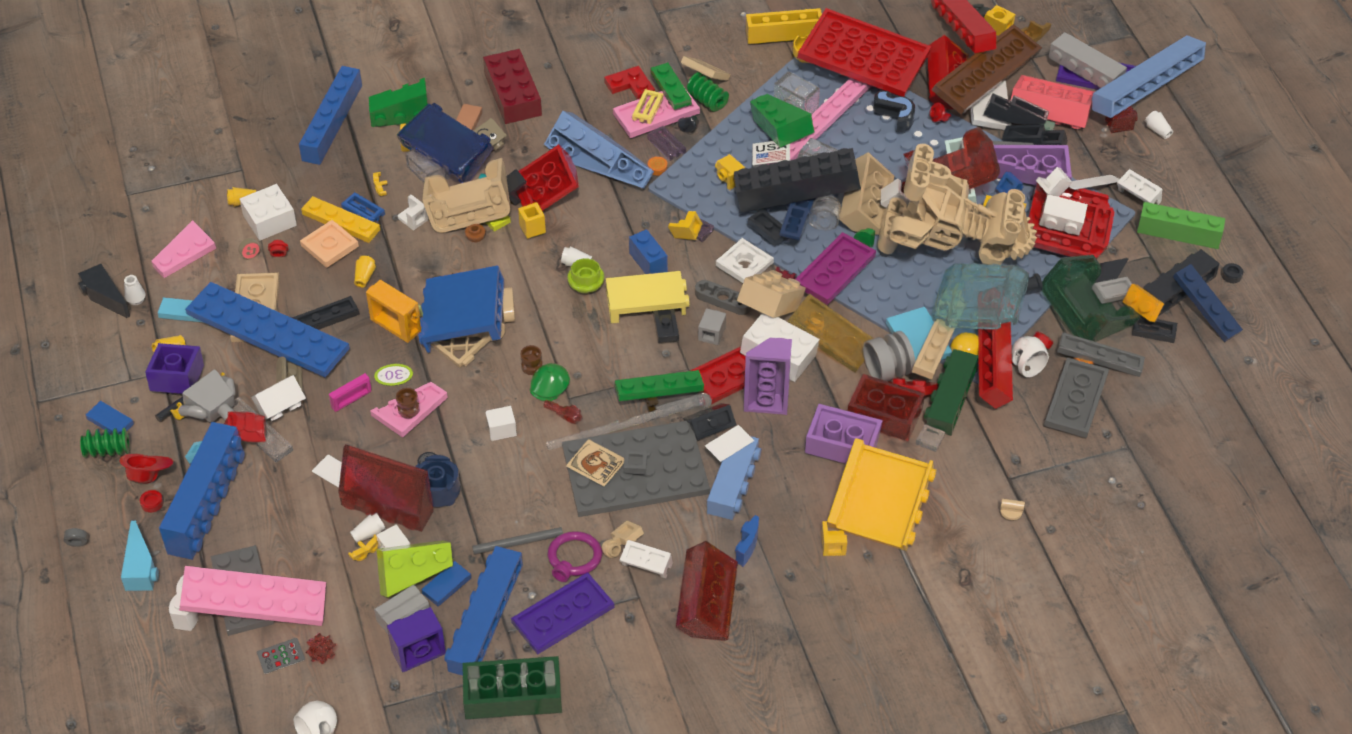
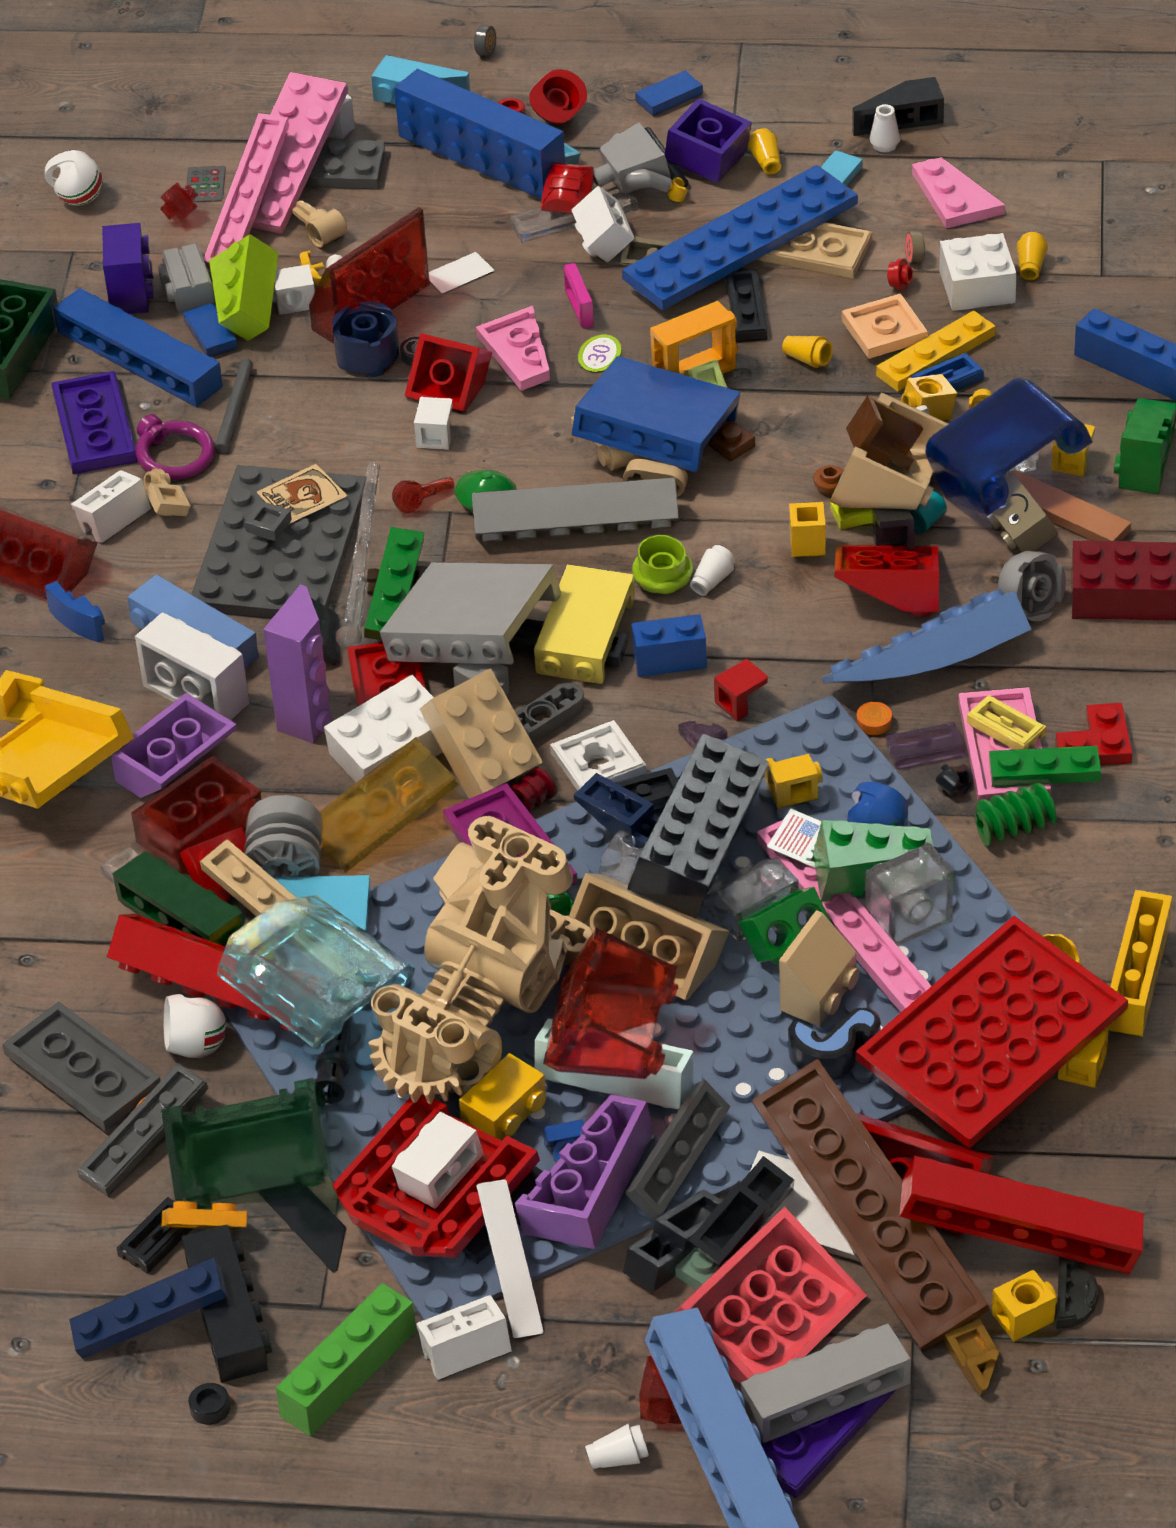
camera: 115 degrees right, 5 degrees down
(105, 443) = (620, 76): green piece -> none
(309, 597) = (249, 183): none -> bright pink plate
(317, 555) = (321, 225): none -> tan axle
(395, 202) = (933, 392): none -> yellow brick
(407, 402) = (510, 327): reddish brown wheel -> none
(449, 432) = (447, 371): none -> red slope
(463, 190) = (884, 433): none -> reddish brown panel
(531, 359) = (531, 472): reddish brown wheel -> none
(535, 123) = (1036, 581): none -> light grey cylinder
(556, 327) = (575, 508): none -> light grey brick
(664, 214) = (735, 684): none -> red panel
(675, 332) = (467, 612): none -> light grey panel
(686, 228) = (698, 701): yellow panel -> none
(705, 68) = (1070, 823): tan tile -> none
(729, 443) = (237, 621): white sticker -> none
(744, 128) = (878, 805): none -> blue helmet
(777, 450) = (184, 660): none -> white brick
(835, 139) = (784, 920): none -> green brick
(860, 125) = (816, 971): none -> tan slope
(1045, 339) = (216, 1064): red tile -> none
(1055, 183) = (494, 1142): white panel -> none
(1112, 289) = (263, 1202): light grey tile -> none

